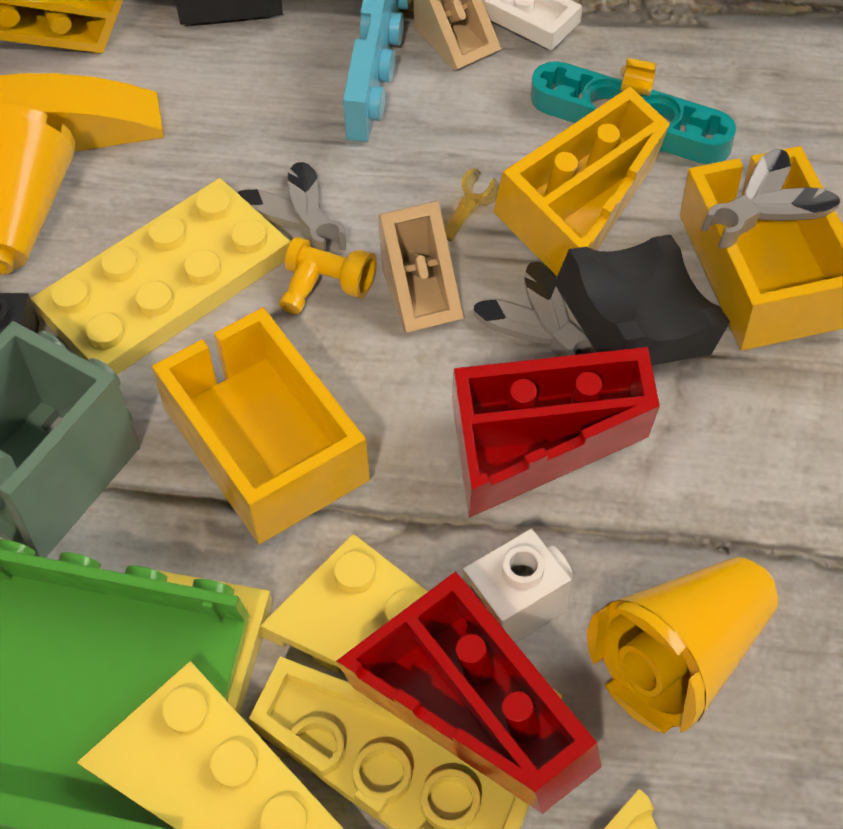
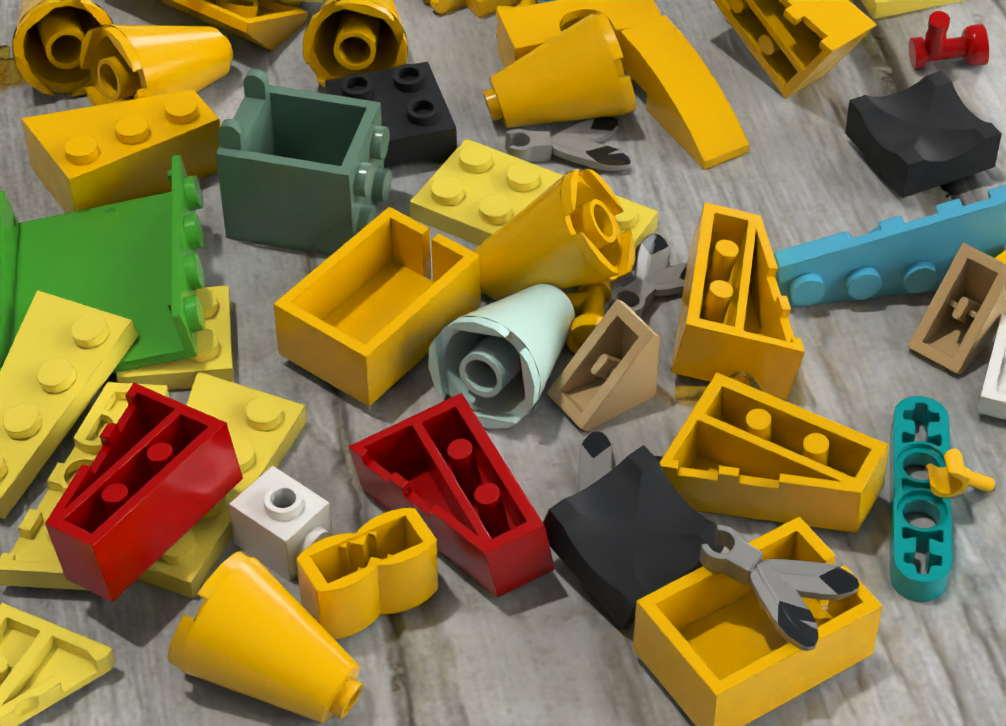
camera: 70 degrees right, 10 degrees down
(80, 221) = (576, 144): none -> light grey piece
(260, 247) = (559, 240): none -> yellow cone
(375, 335) = (502, 353): none -> light aqua cone
(378, 153) = (733, 305): none -> yellow wedge
(624, 519) = (369, 572): none -> yellow brick

